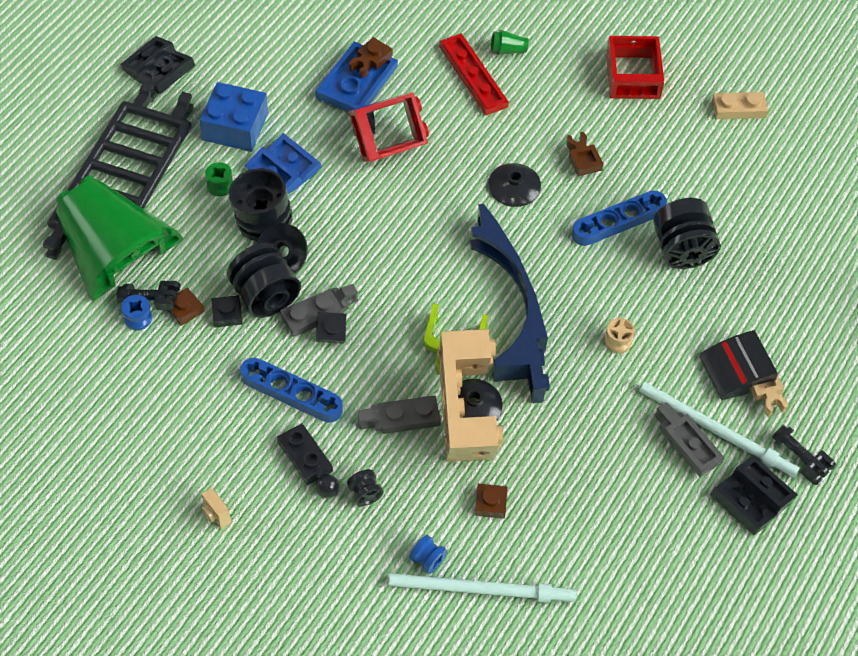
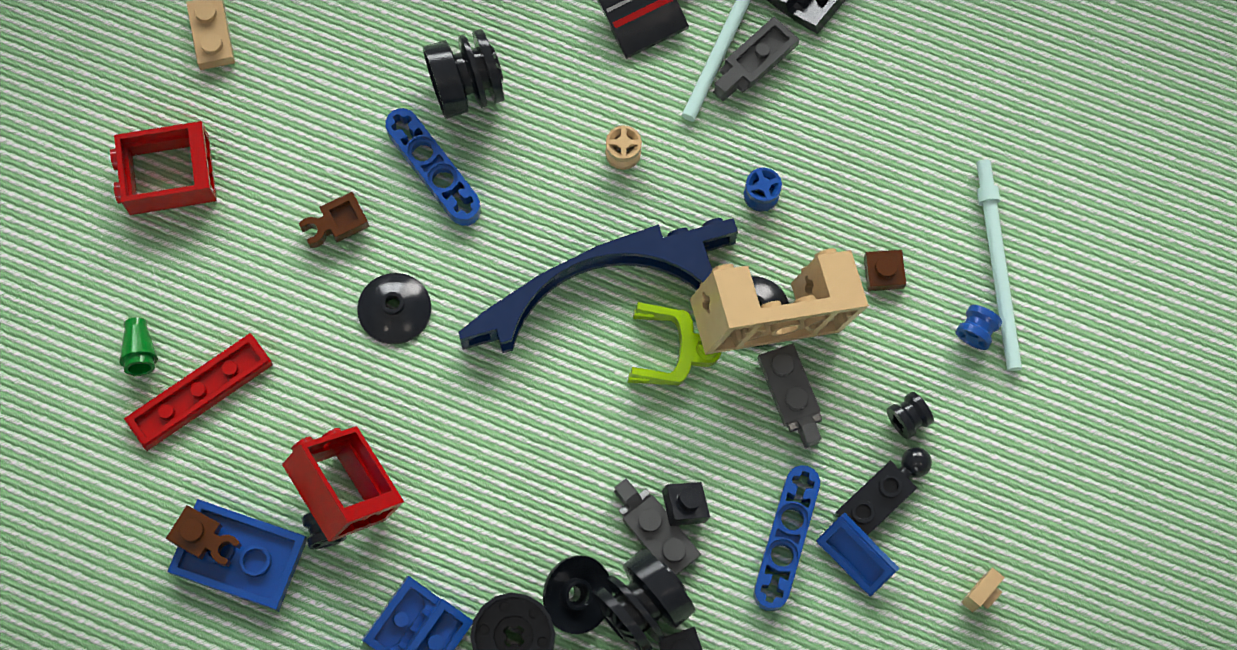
camera: 100 degrees left, 15 degrees up
(265, 430) = (857, 554): none -> blue tile
(577, 418) = (762, 180): none -> blue wheel

